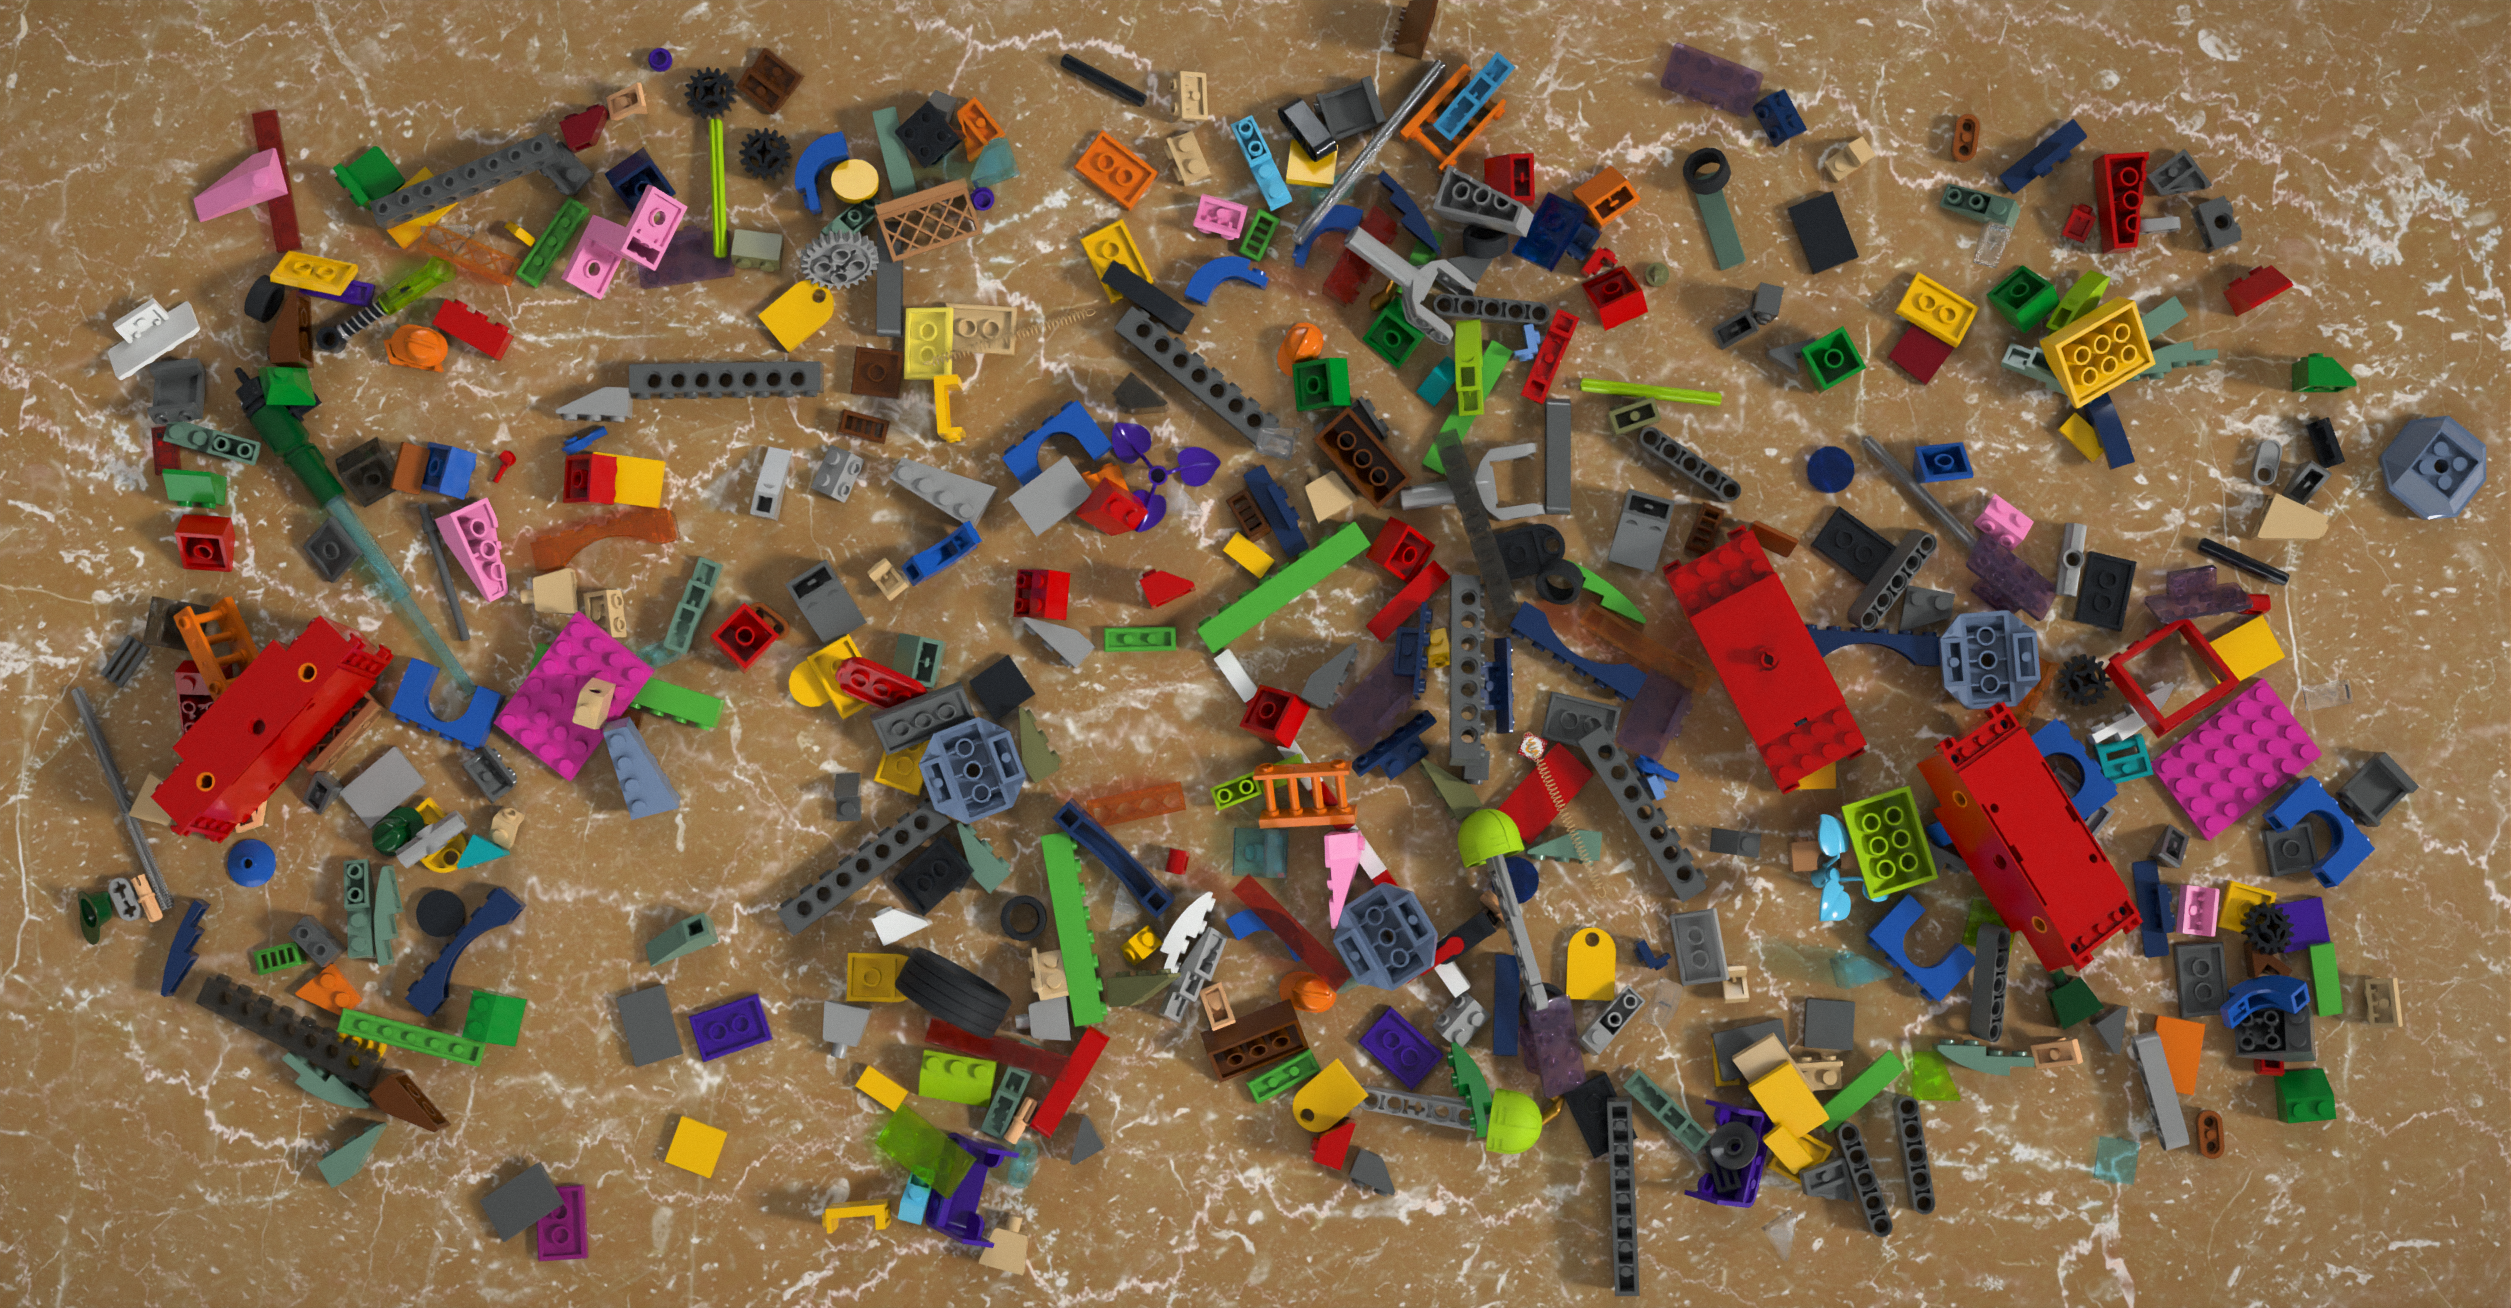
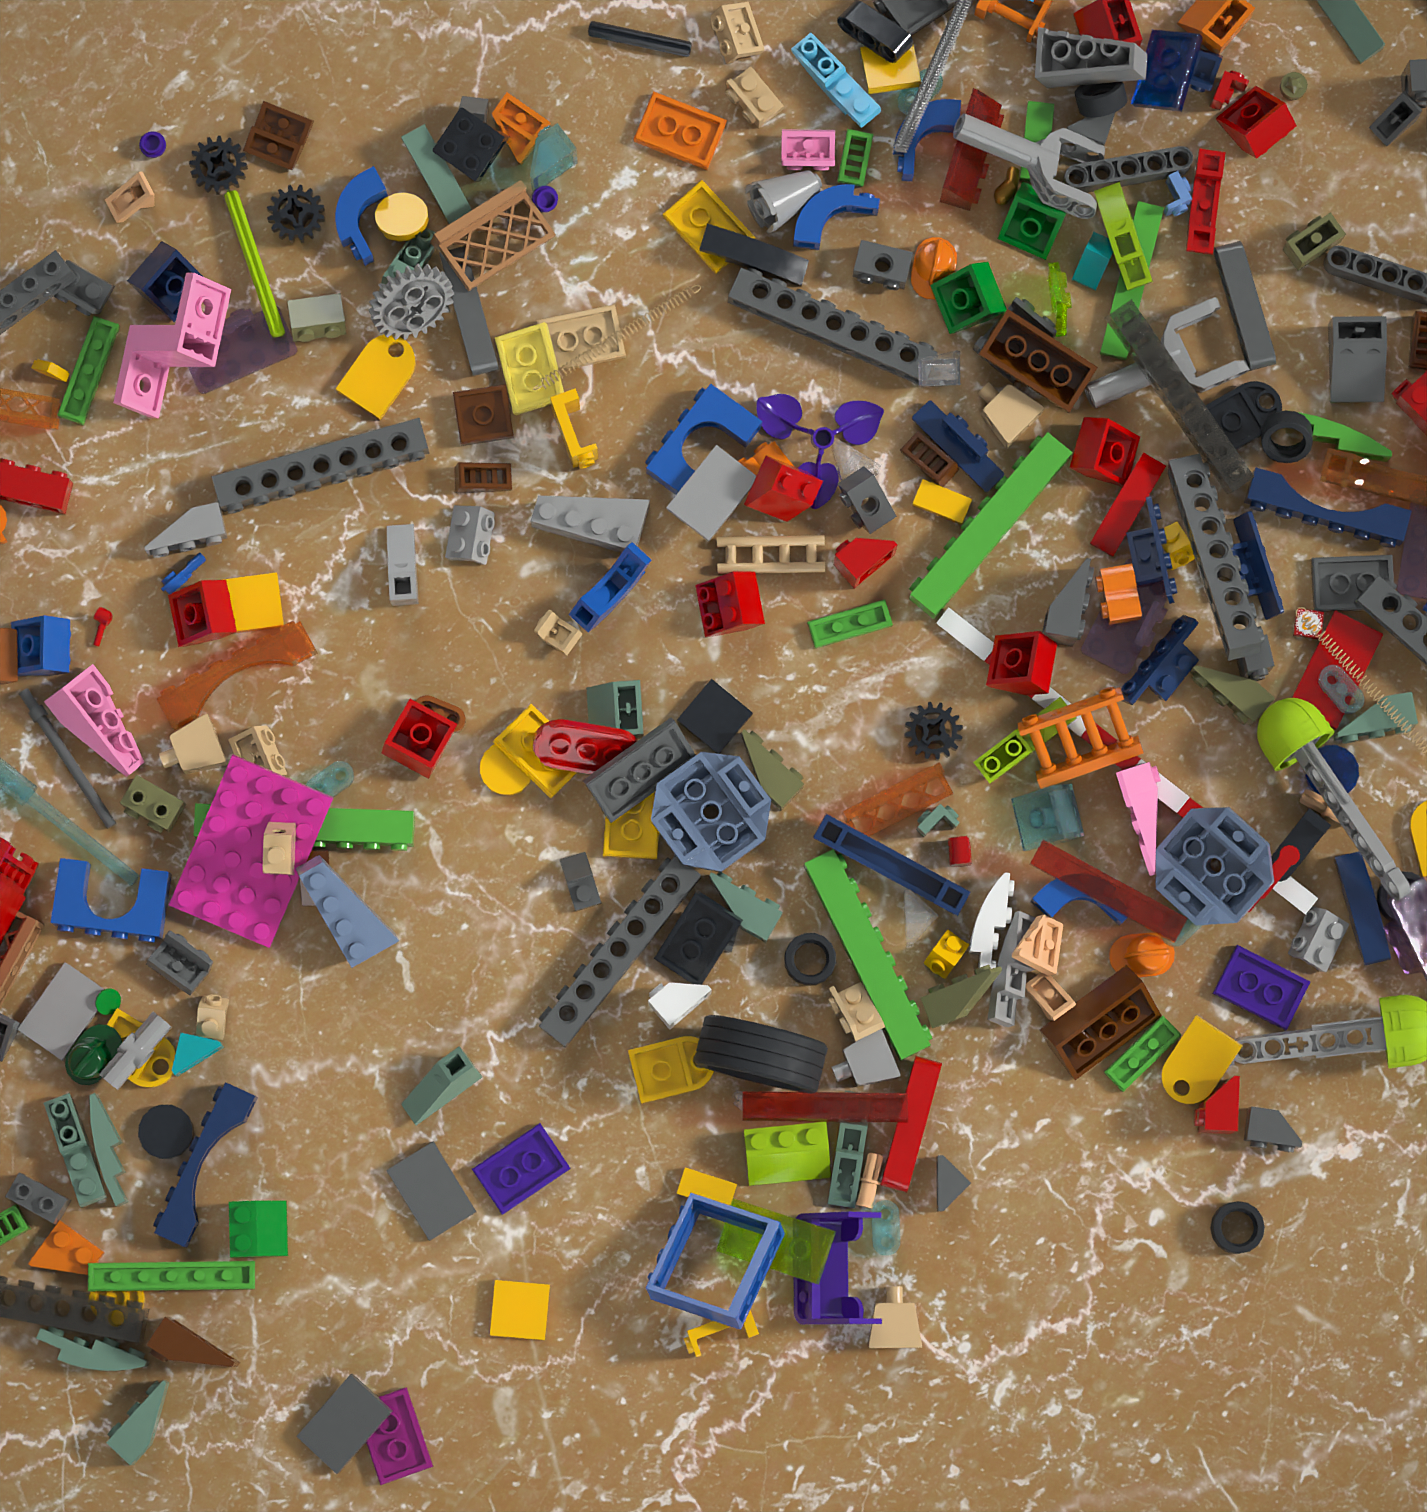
camera: 20 degrees left, 5 degrees down
(421, 789) = (108, 1001): none -> green piece
(503, 632) = (152, 804): none -> olive brick
(584, 129) = (91, 239): dark red slope -> none
(693, 605) = (352, 719): sand green slope -> none
(826, 602) = (497, 676): dark grey slope -> none
(844, 1025) = (646, 1130): light grey torso -> none
(894, 1179) = (753, 1278): none -> blue window
(914, 1200) = (779, 1298): medium azure slope -> none
(1066, 641) = (769, 646): light grey slope -> none
(1102, 553) = (784, 564): none -> tan bar
(1138, 397) = (777, 363): clear smoke slope -> none
(1158, 827) = (929, 819): none -> sand green bracket
(1181, 525) = (877, 509): none -> dark grey brick
(1185, 253) = (781, 197): none -> light grey cone
(1197, 742) = (923, 724): none -> black gear
(1221, 962) = (1041, 945): none -> light nougat wing
(1247, 324) = (873, 253): none -> dark grey brick
(1320, 1265) = (1256, 1218): none -> black tyre
(1375, 679) = (1119, 594): none -> orange brick
(1399, 409) = (1059, 299): none -> clear neon green wing
(1413, 219) = (1018, 96): dark blue slope -> none
(1472, 1086) = (1353, 1001): green slope -> none
(1543, 812) = (1344, 687): none -> clear light blue plate
(1650, 391) = (1337, 209): lime axle -> none

